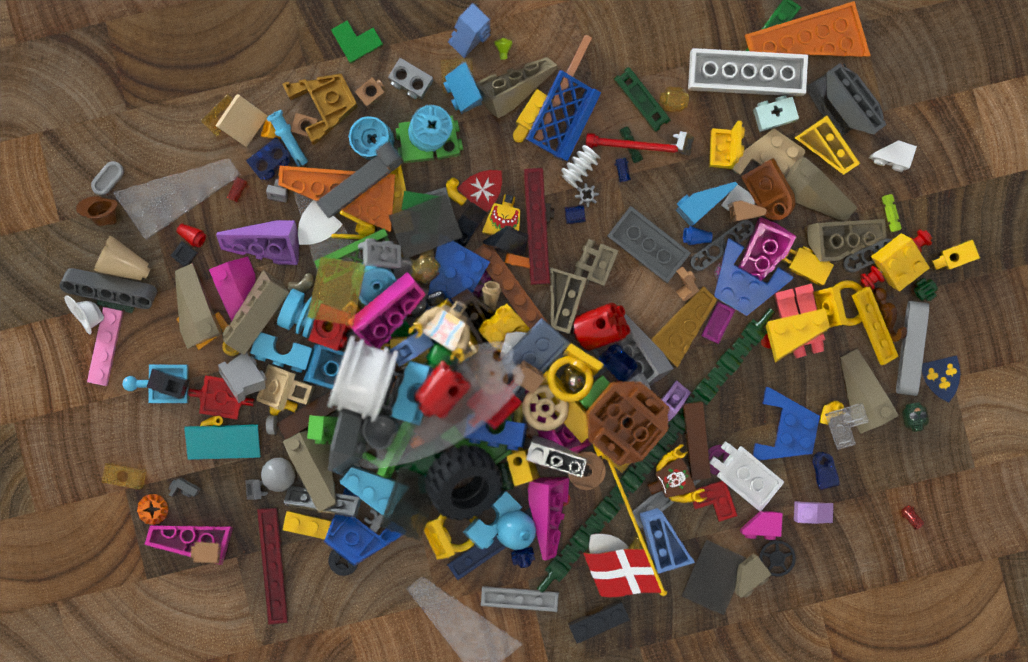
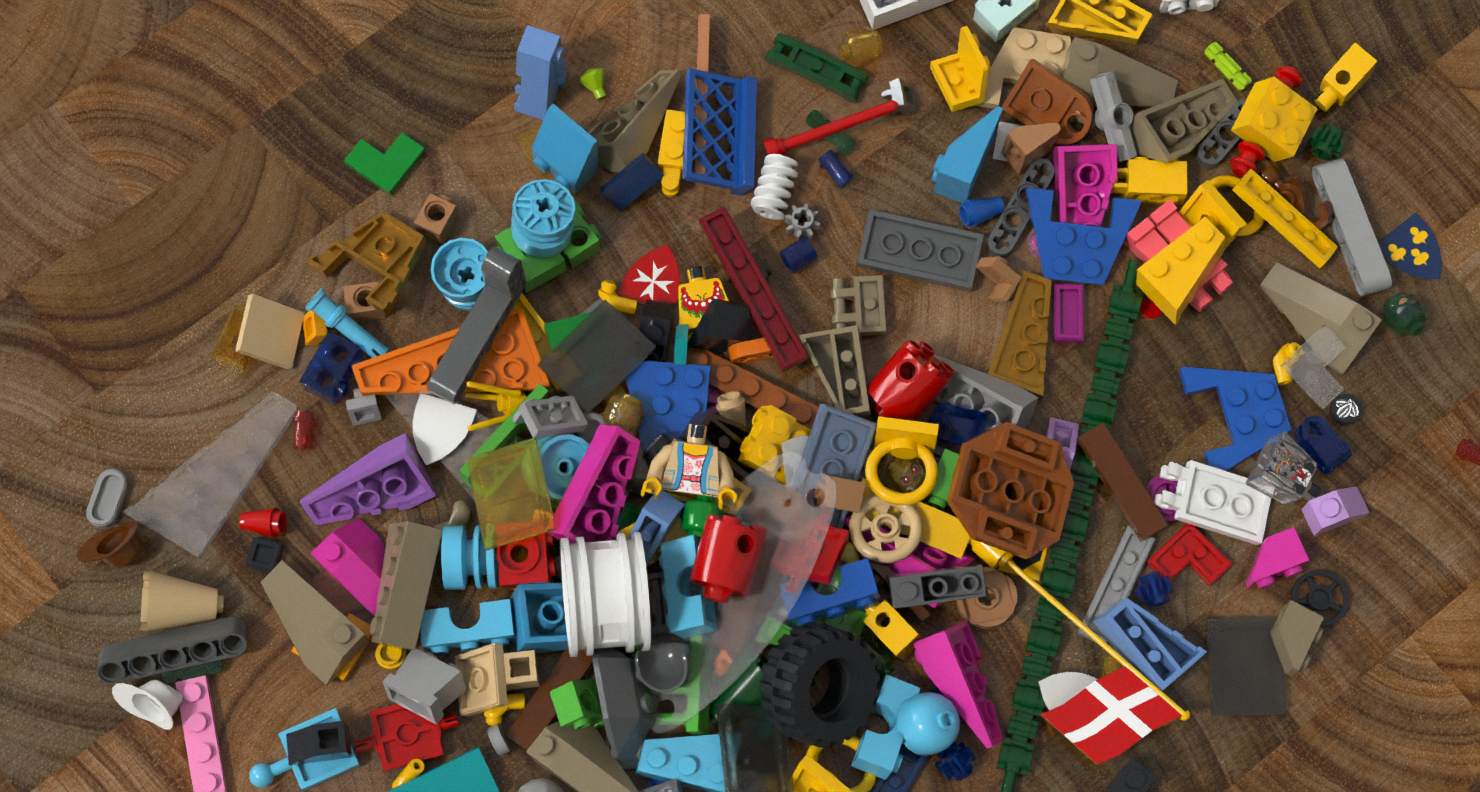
camera: 25 degrees left, 15 degrees down
(413, 75) = (486, 169): light grey brick -> none
(478, 241) = (680, 348): none -> teal tile
(496, 124) = (631, 181): none -> dark blue tile
(675, 479) = (1118, 547): torso -> none
(684, 511) = (1154, 589): none -> clear blue gear
(794, 477) = (1284, 471): none -> clear torso
(804, 216) = (1113, 115): none -> light grey piece
(851, 455) = (1345, 409): none -> tile

